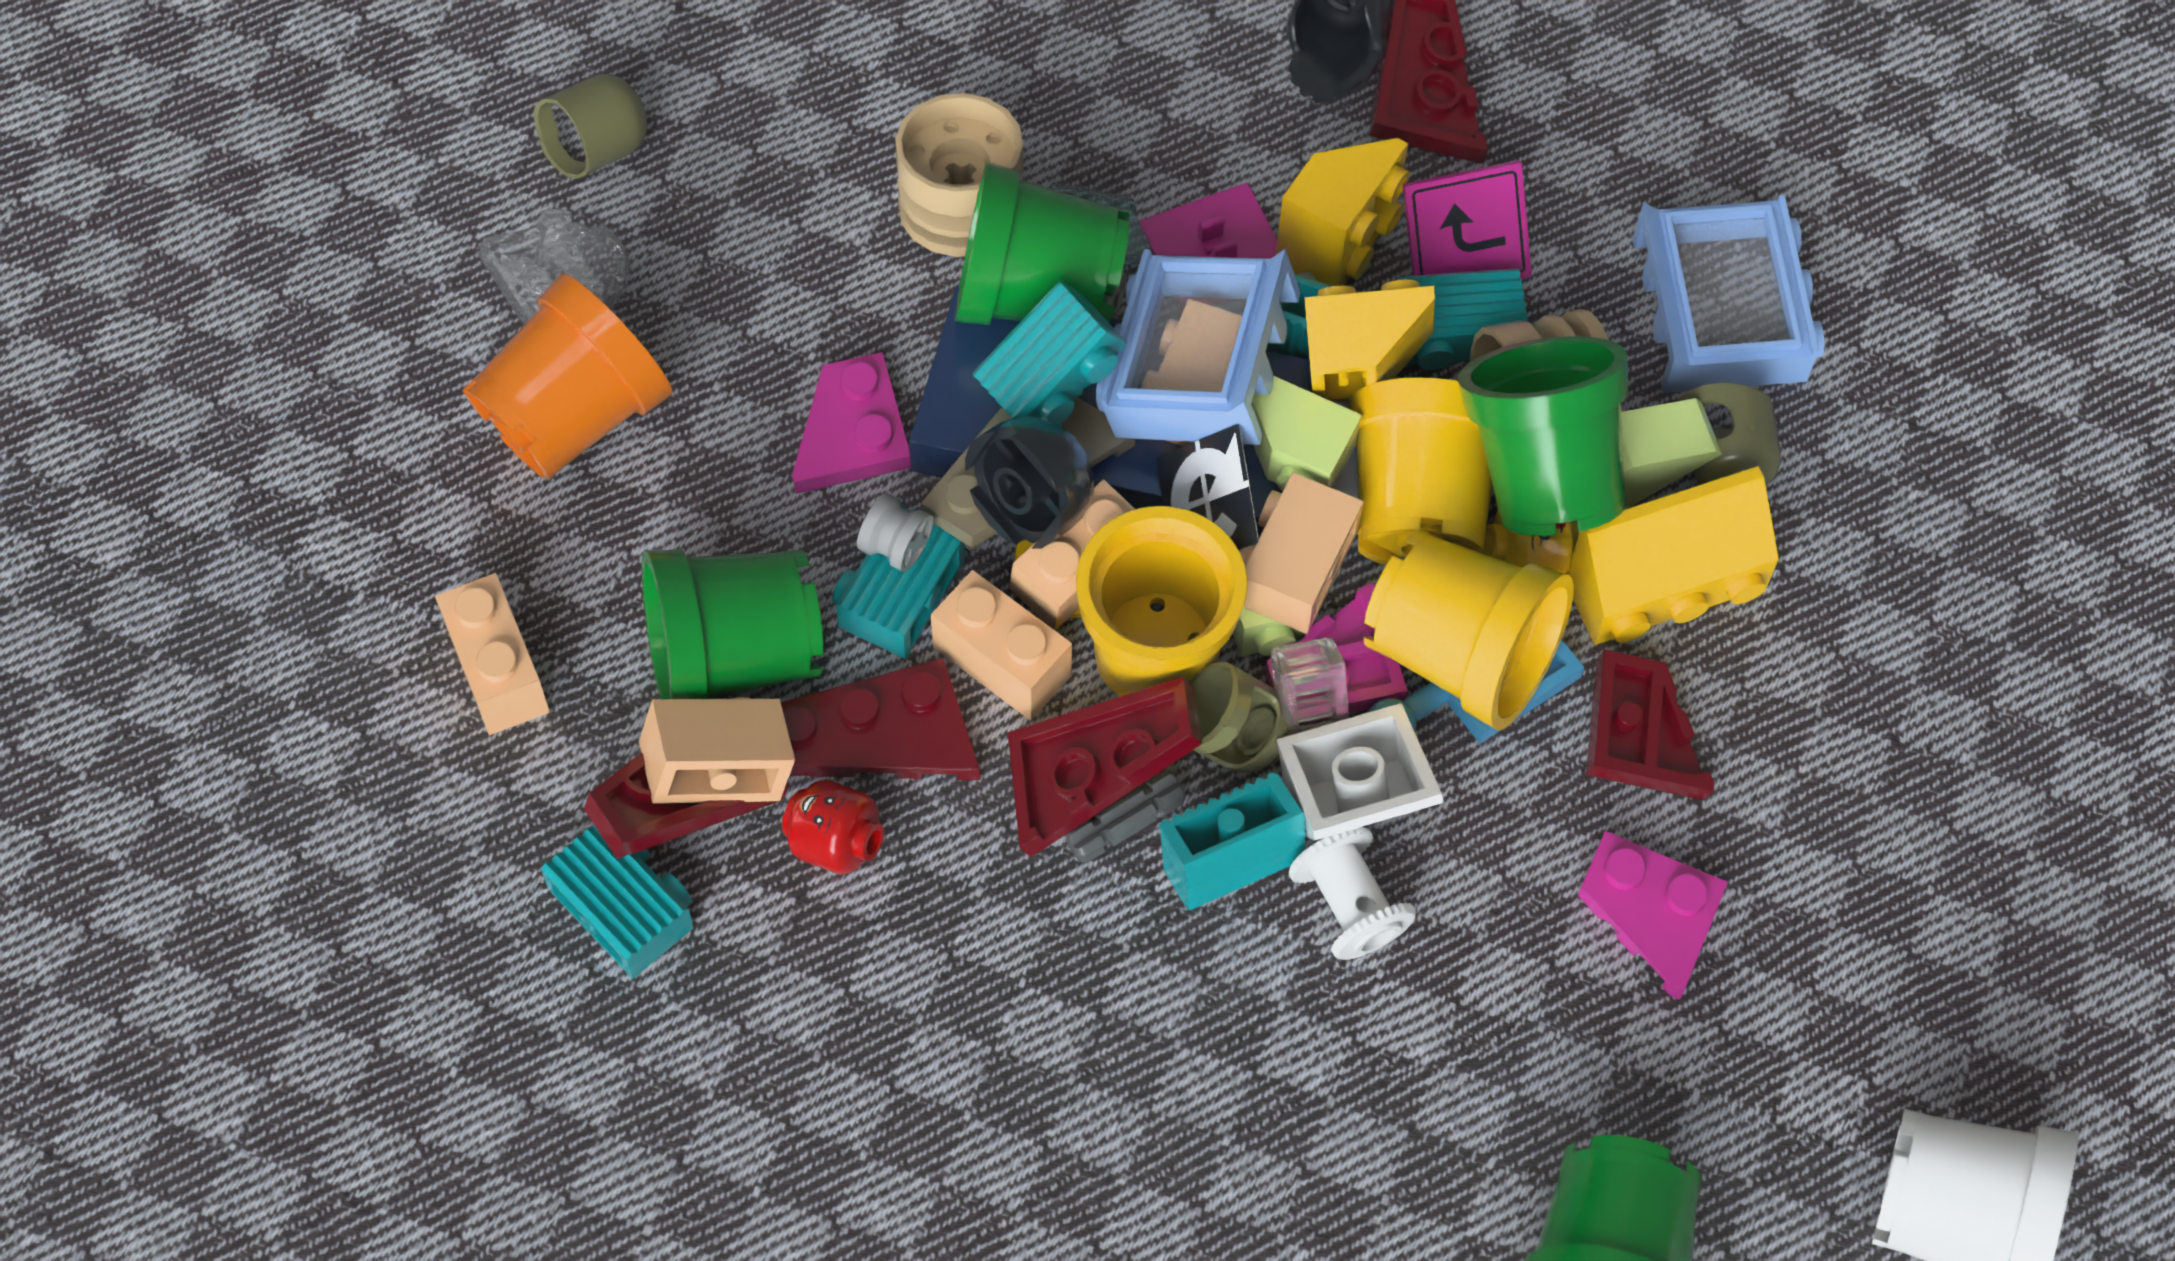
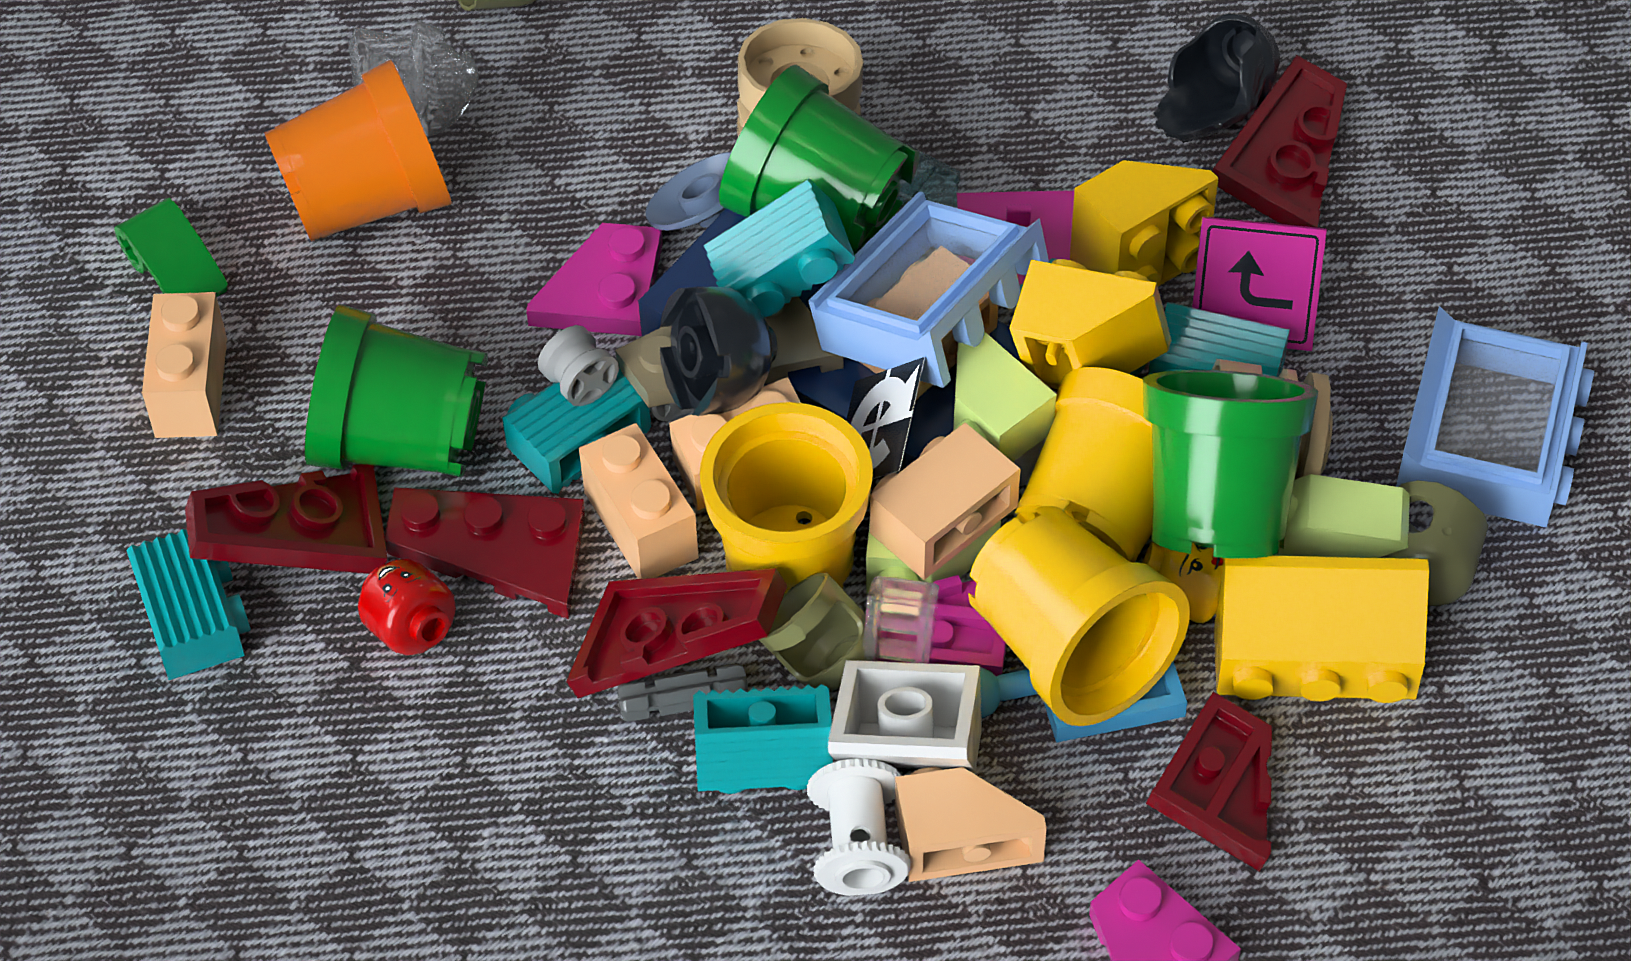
camera: 25 degrees right, 10 degrees down
(413, 535) = (171, 250): none -> green panel
(716, 750) = (326, 498): light nougat brick -> none
(904, 302) = (689, 196): none -> sand blue dish
(1438, 854) = (963, 824): none -> light nougat slope

